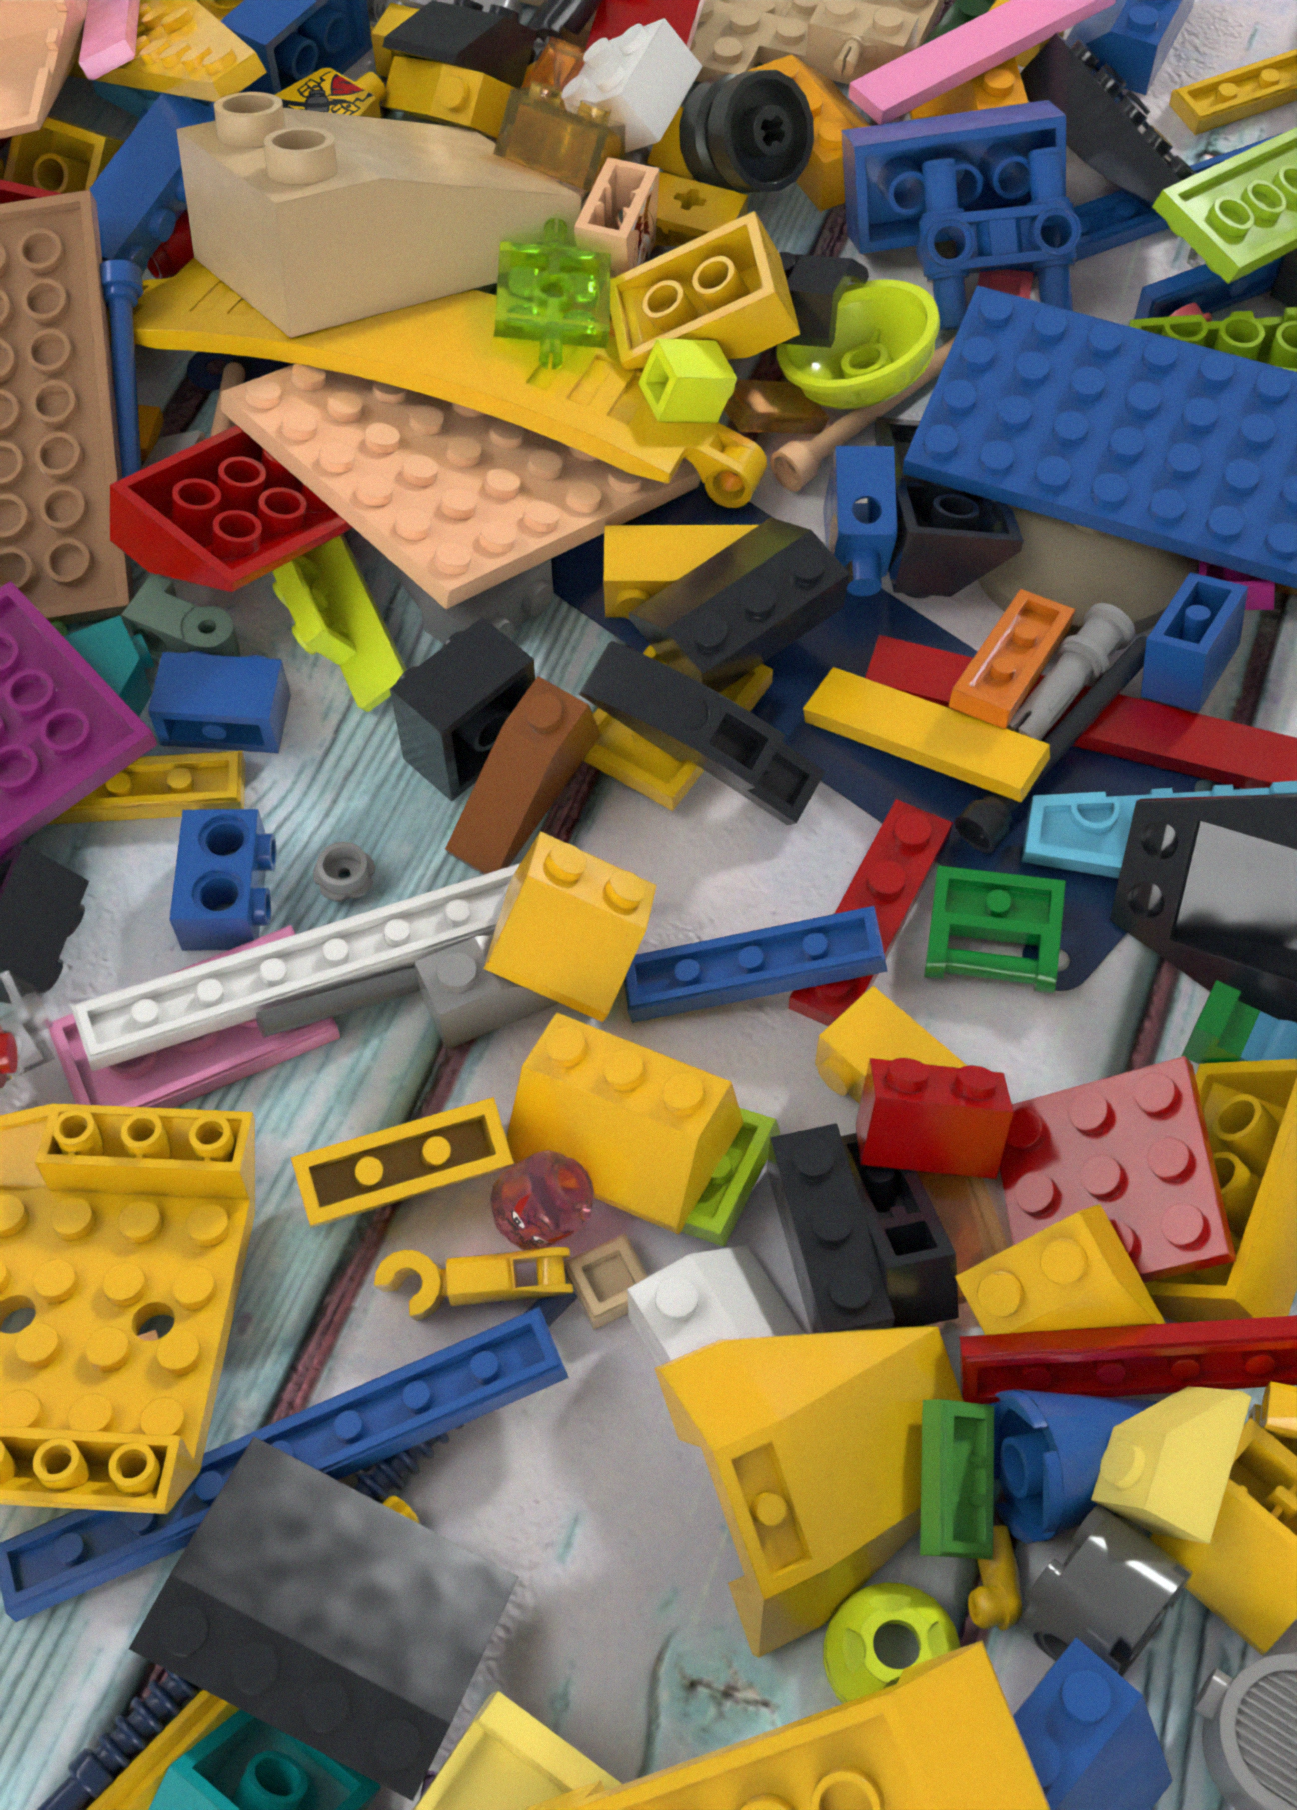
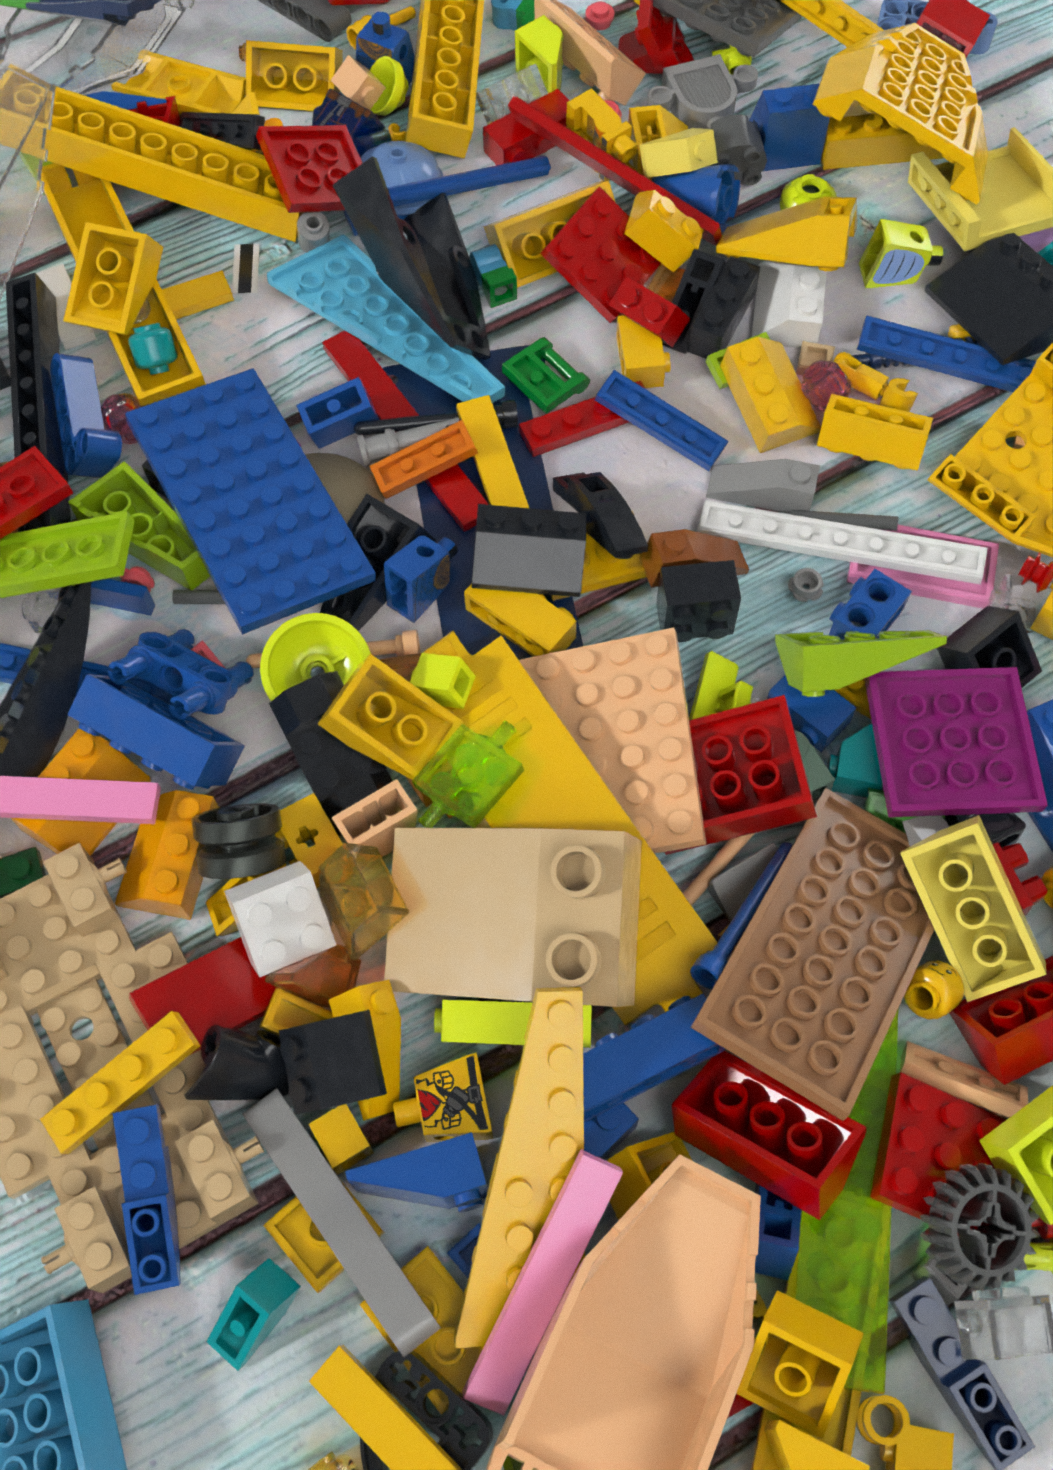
camera: 140 degrees left, 5 degrees up
(197, 738) = (829, 663): none -> lime wedge
(570, 926) = (732, 469): yellow slope -> none
(635, 1582) = (897, 254): none -> neon yellow torso
(957, 1479) = (750, 208): bright green plate -> none
(1000, 1597) = (762, 183): yellow arm -> none

